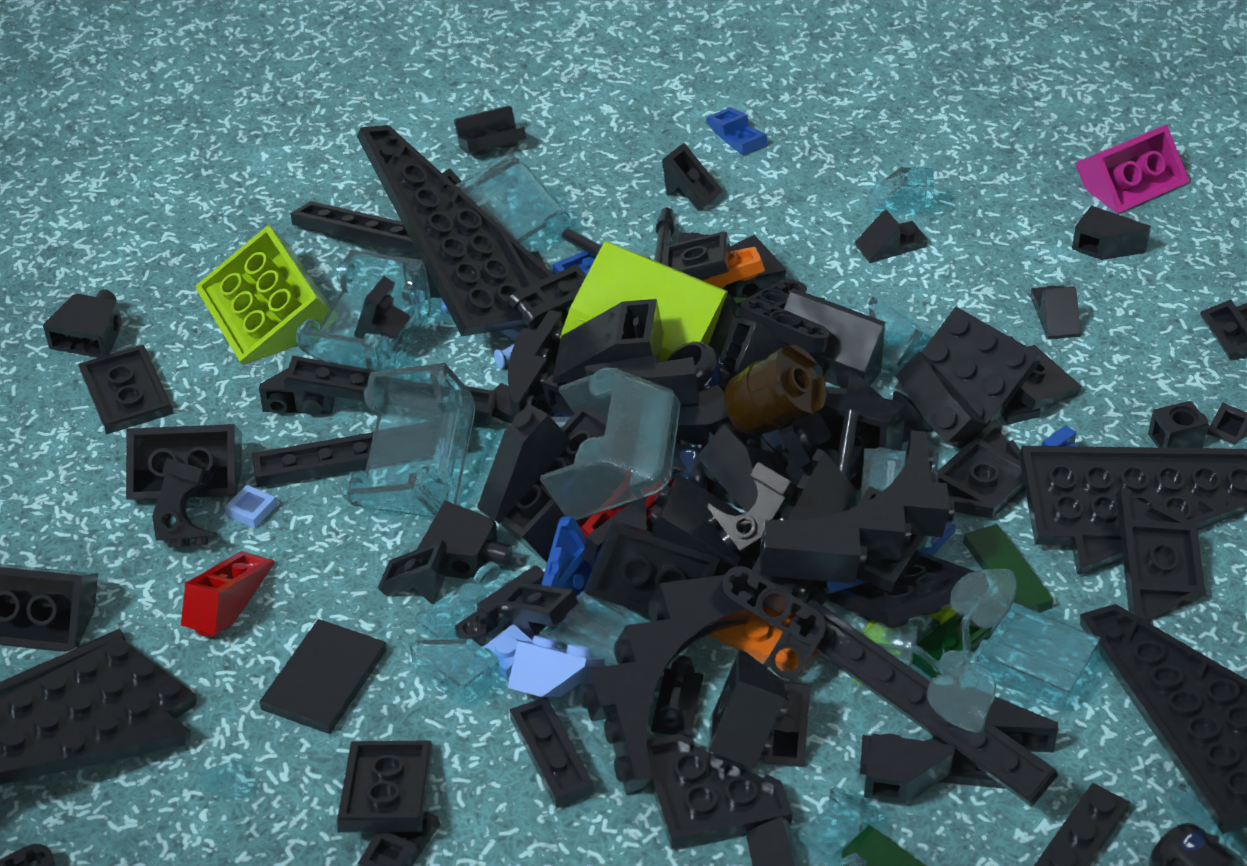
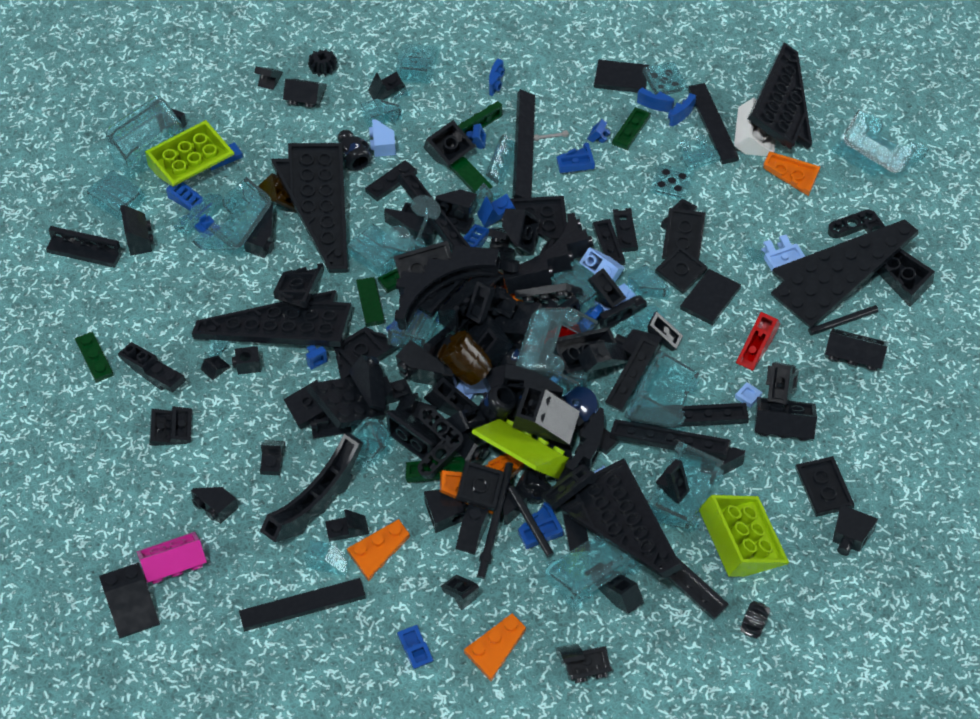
camera: 170 degrees left, 10 degrees up
(162, 770) = (784, 255): none -> light blue plate
(250, 194) = (755, 619): none -> black gear
(387, 712) = (681, 269): none -> black plate
(460, 481) = (632, 374): none -> black plate
(516, 127) = (569, 653): none -> black slope
(519, 794) = (625, 230): none -> black plate
(624, 146) = (495, 645): none -> orange wing
(811, 781) = (493, 212): none -> blue slope
(832, 224) = (376, 549): none -> orange wing
(851, 695) = (481, 238): none -> blue slope
(913, 153) = (302, 604): none -> black tile
(955, 241) = (332, 480): none -> black arch
(1186, 119) = (129, 600): none -> black slope

